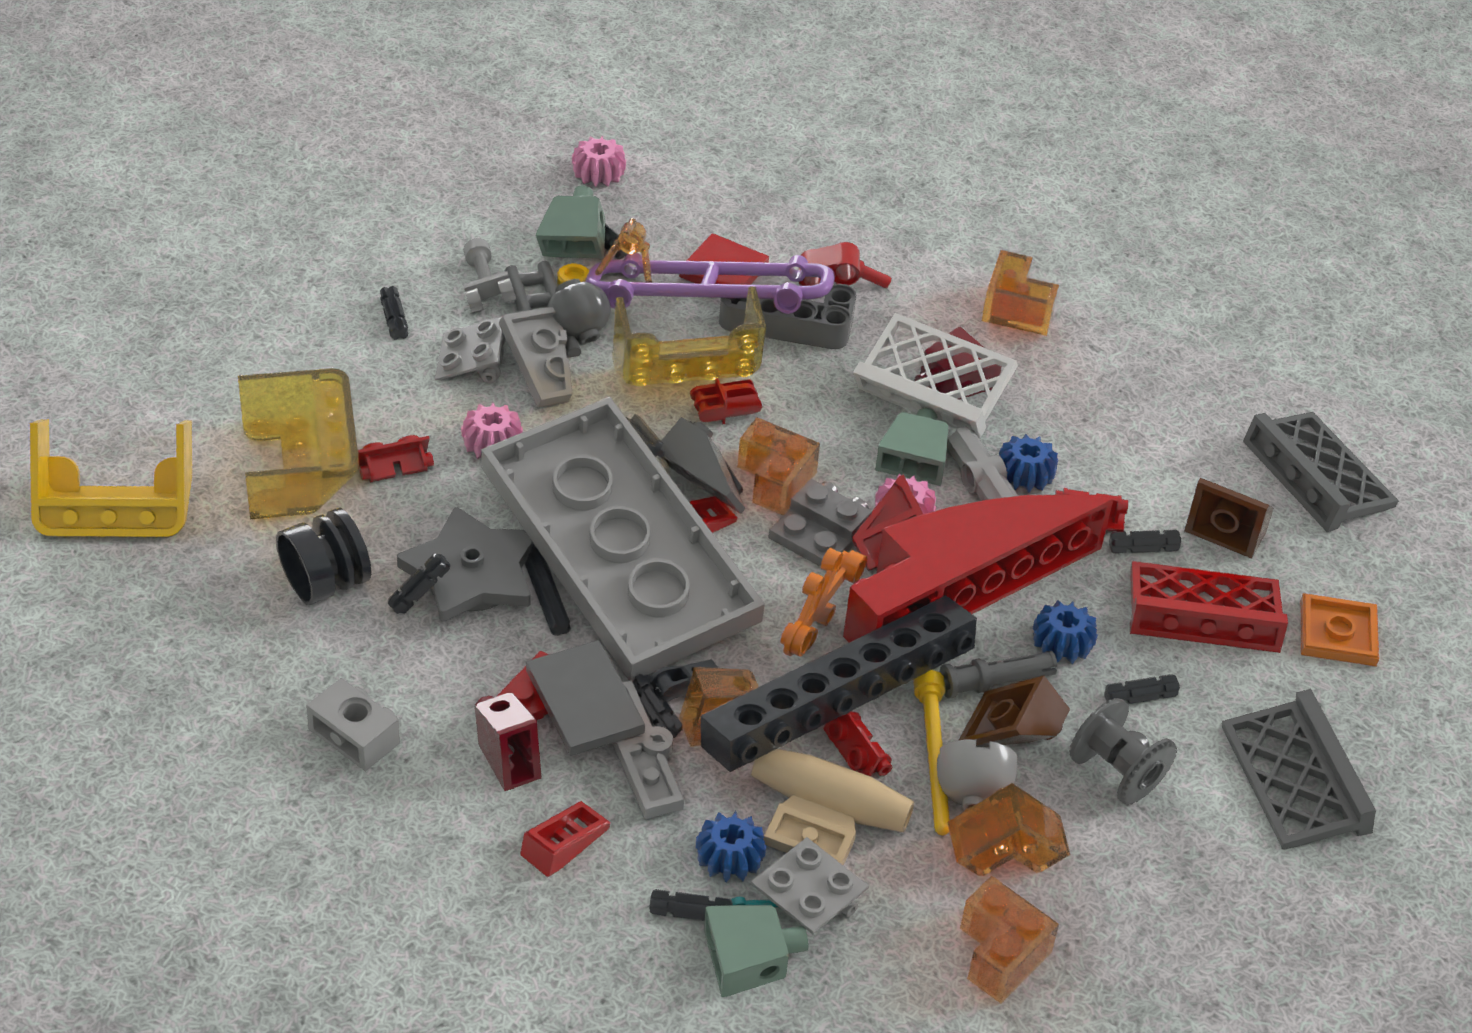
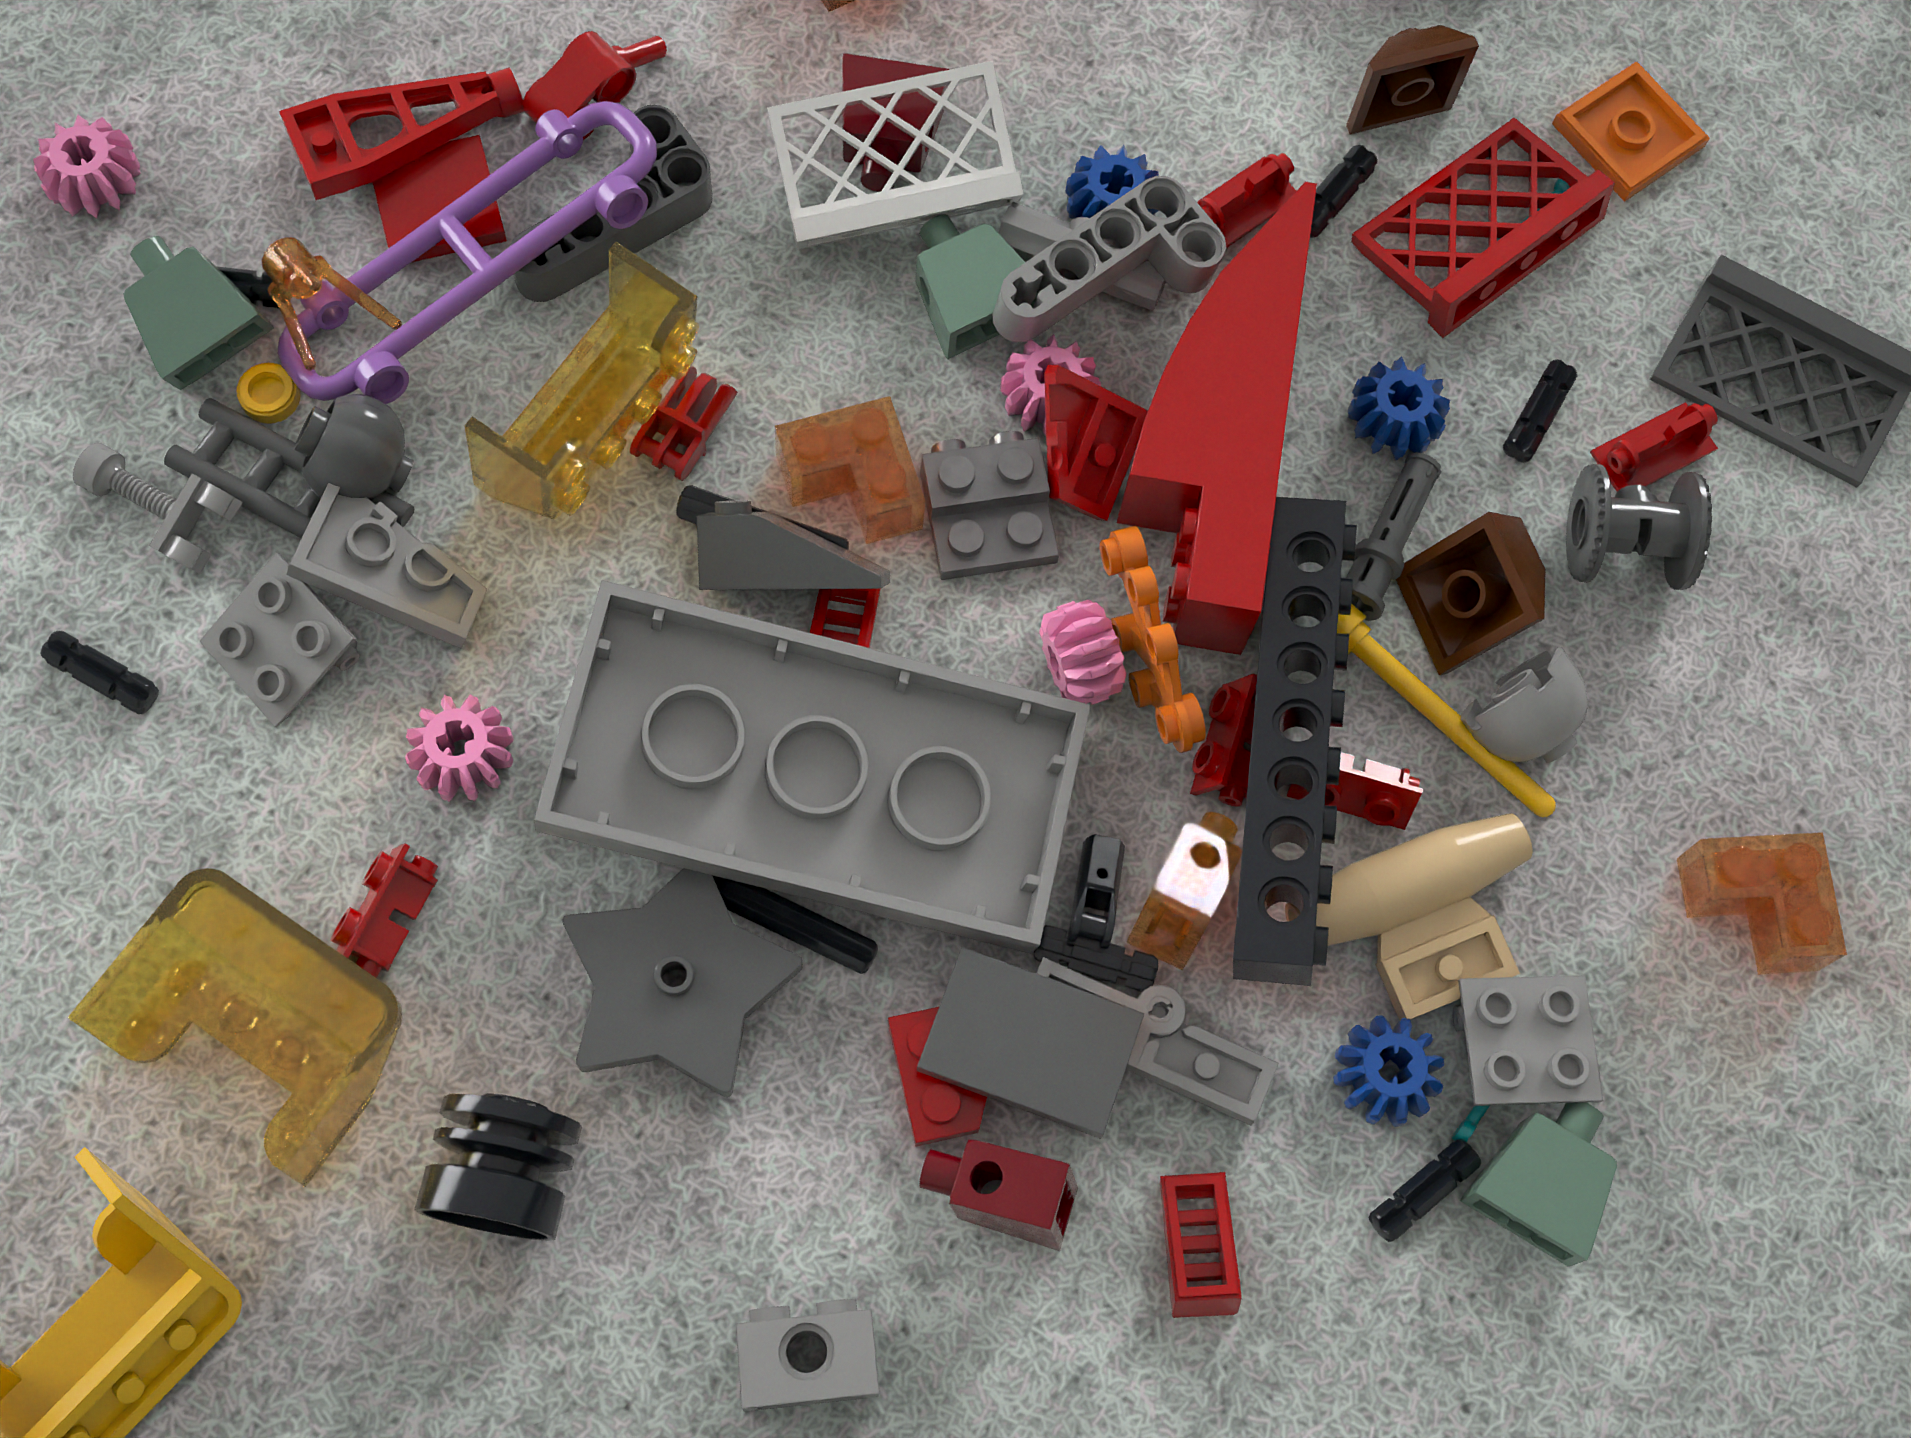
camera: 50 degrees left, 25 degrees up
(419, 583) = (656, 1080): black axle -> none
(647, 435) = (665, 579): black axle -> none
(702, 214) = (335, 162): none -> red plate
(784, 592) = (1082, 652): none -> bright pink gear
(976, 460) = (1099, 266): none -> light grey beam
(1007, 828) = (1651, 749): clear orange brick -> none
(1195, 750) = (1658, 446): none -> red hinge

